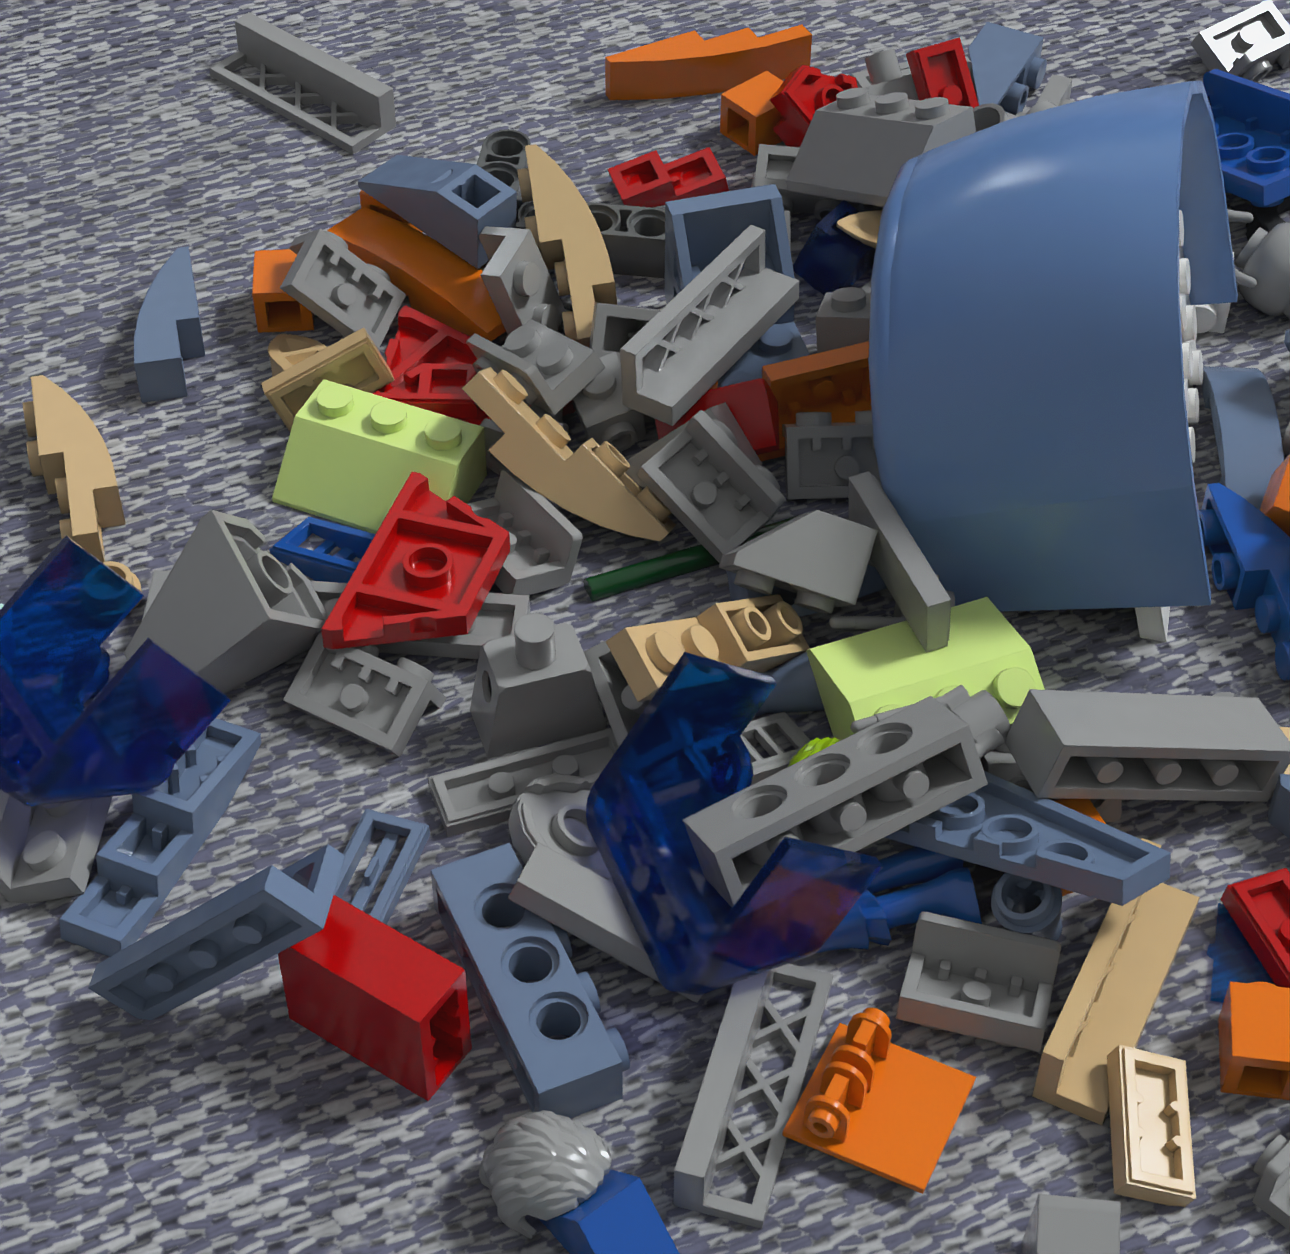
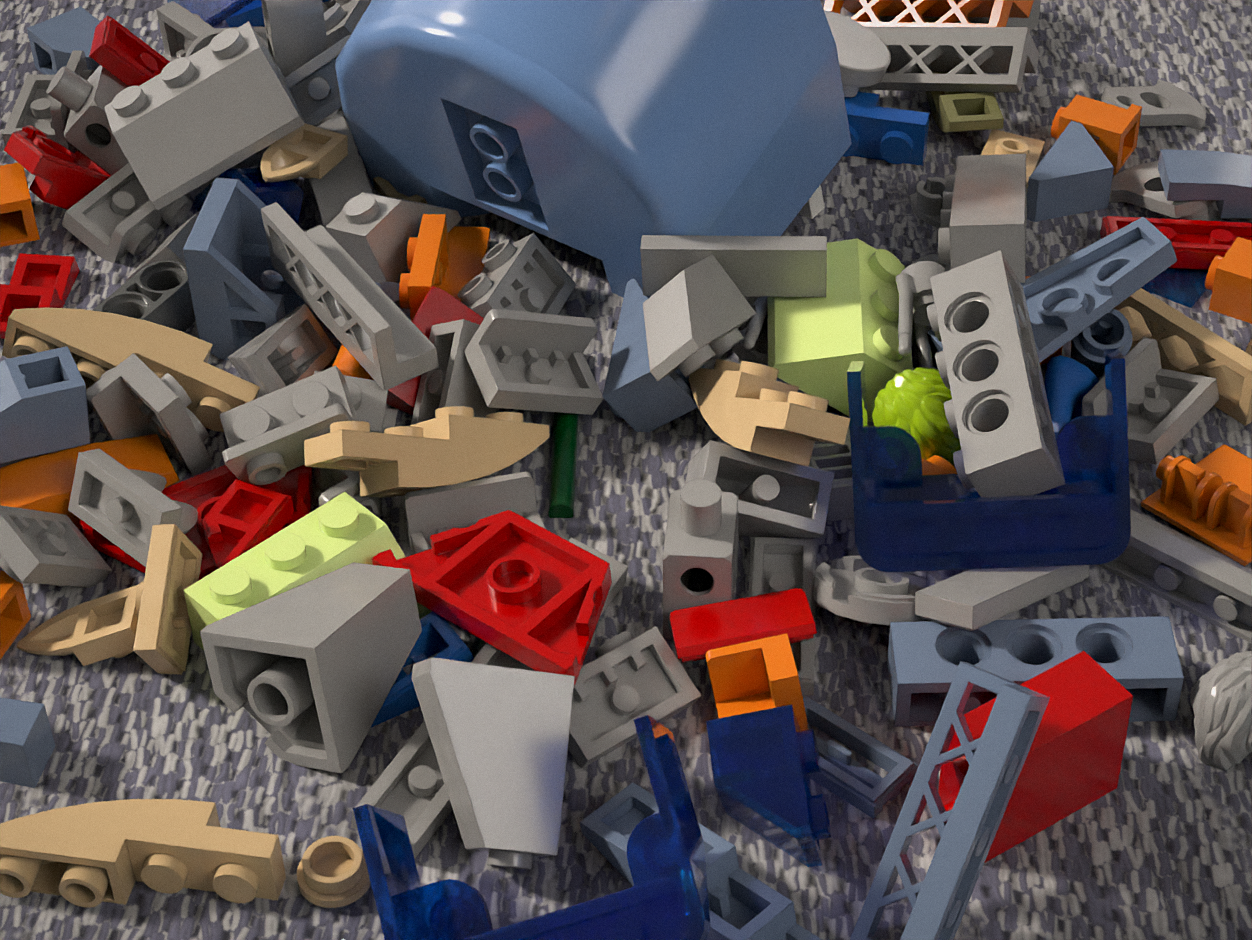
camera: 65 degrees left, 5 degrees down
(288, 818) = (764, 779): none -> clear blue slope
(305, 482) = (317, 660): none -> light grey slope
(396, 789) = (756, 678): none -> orange panel
(419, 303) = (124, 503): none -> light grey tile
(461, 742) = (741, 621): none -> red slope

